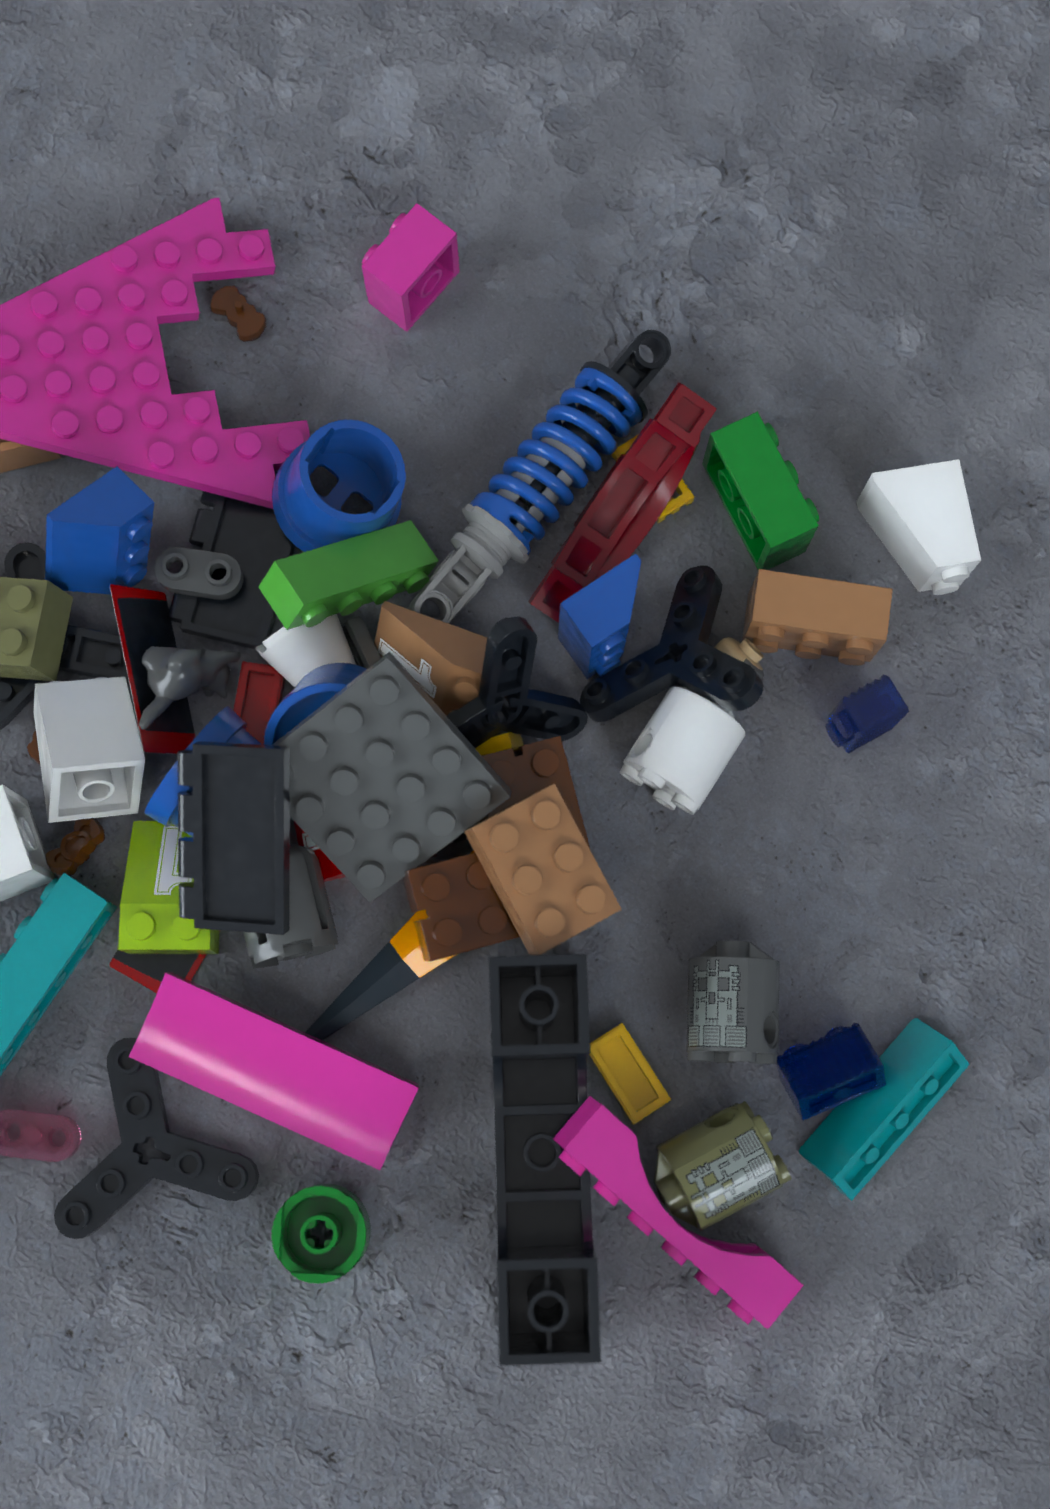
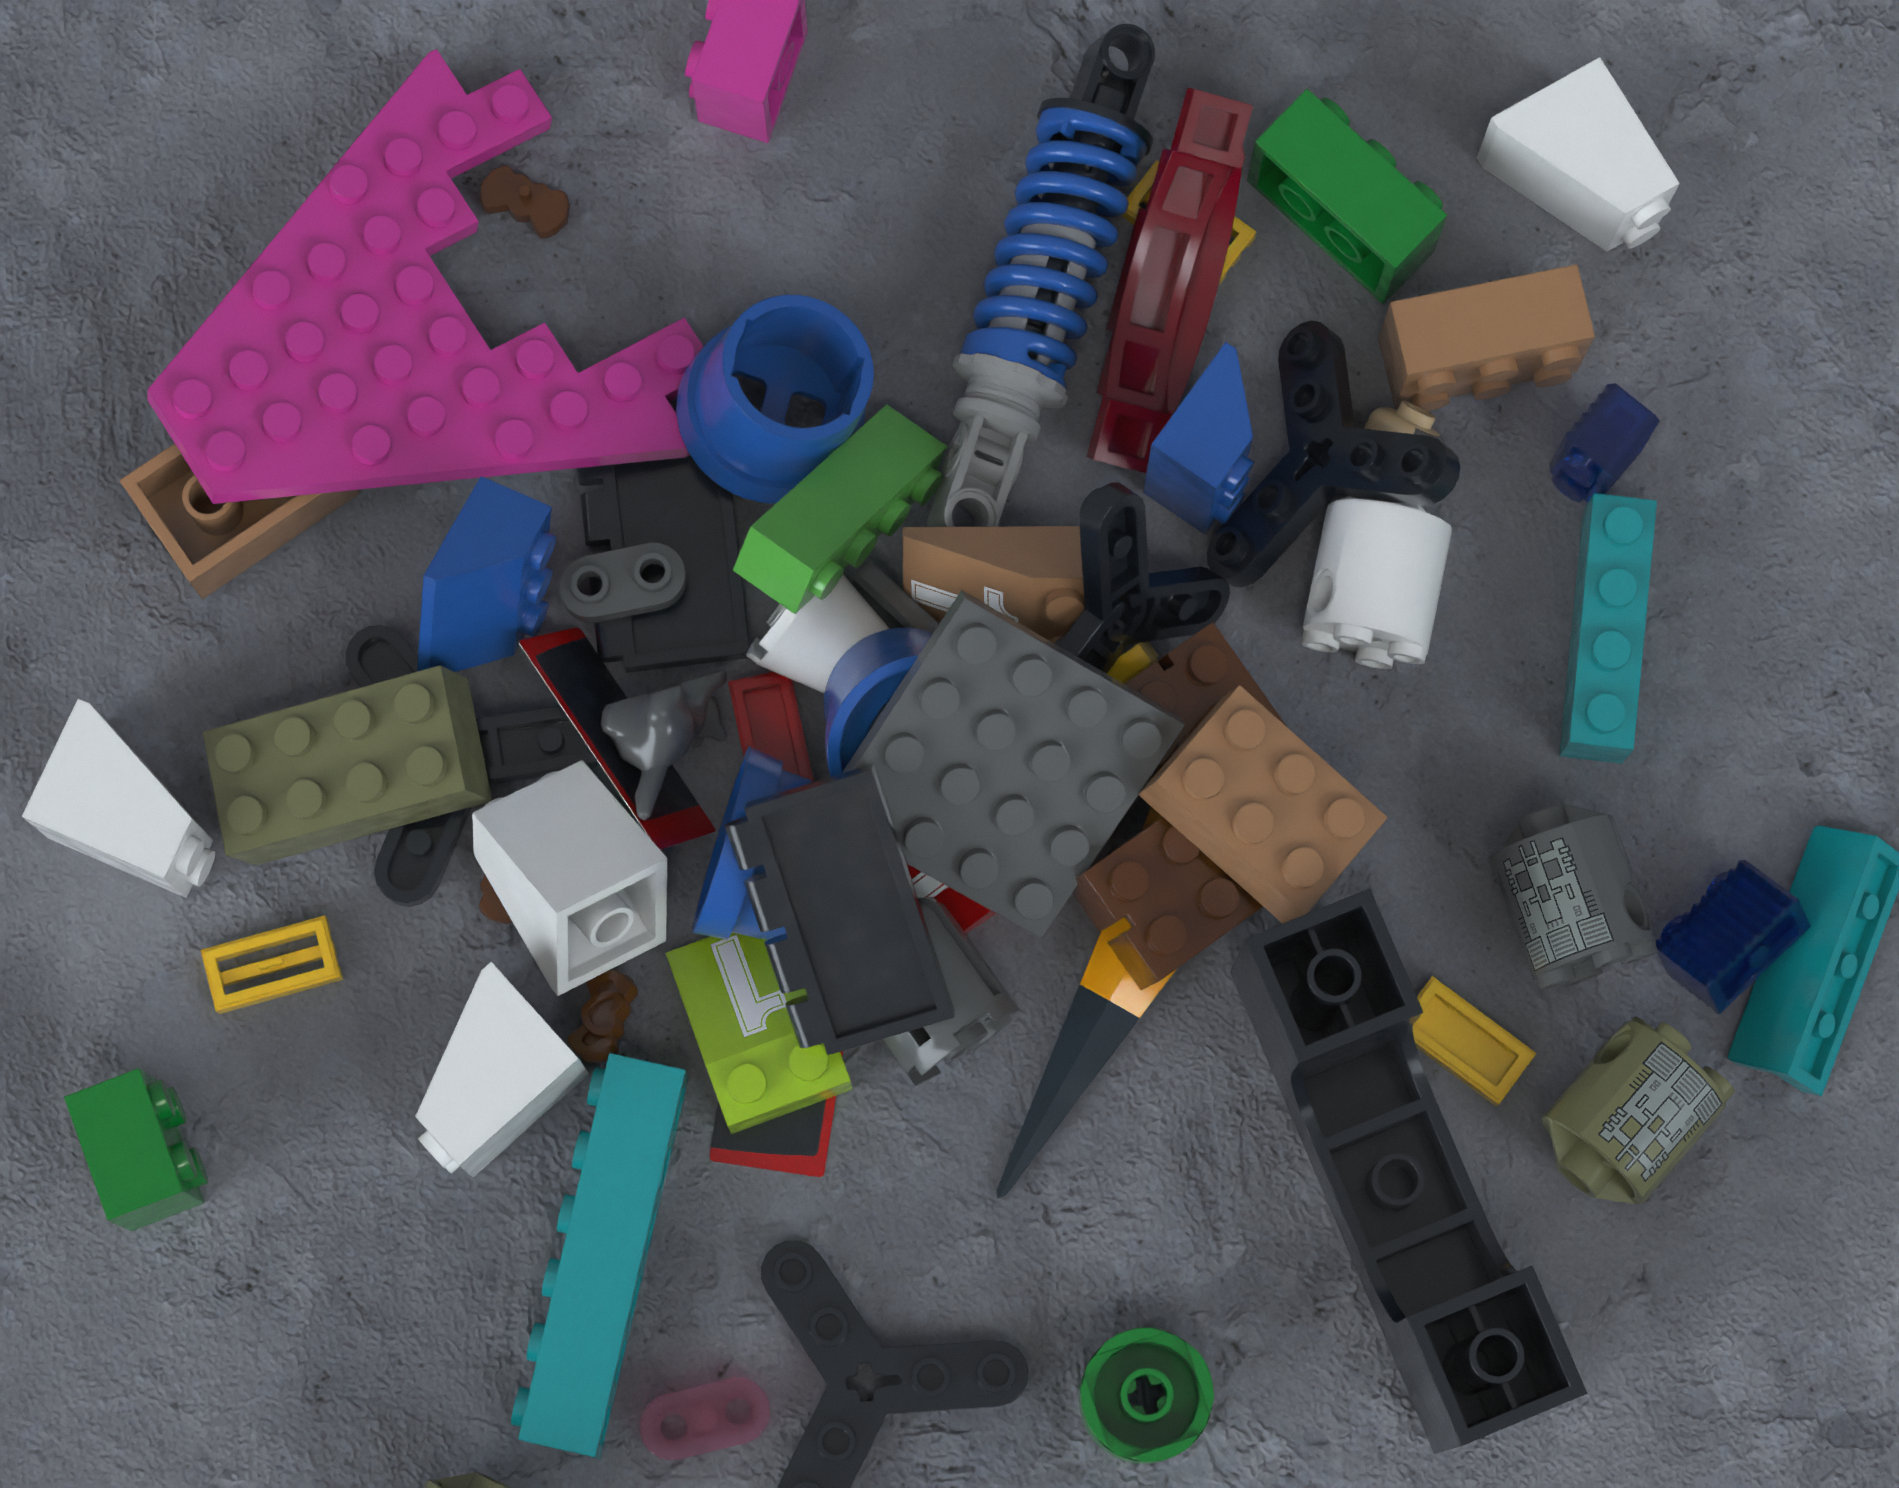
camera: 20 degrees left, 0 degrees up
(273, 1070) = (996, 1210): dark pink arch -> none
(610, 1152) = (1490, 1143): dark pink arch -> none
(825, 836) = (1608, 628): none -> teal brick

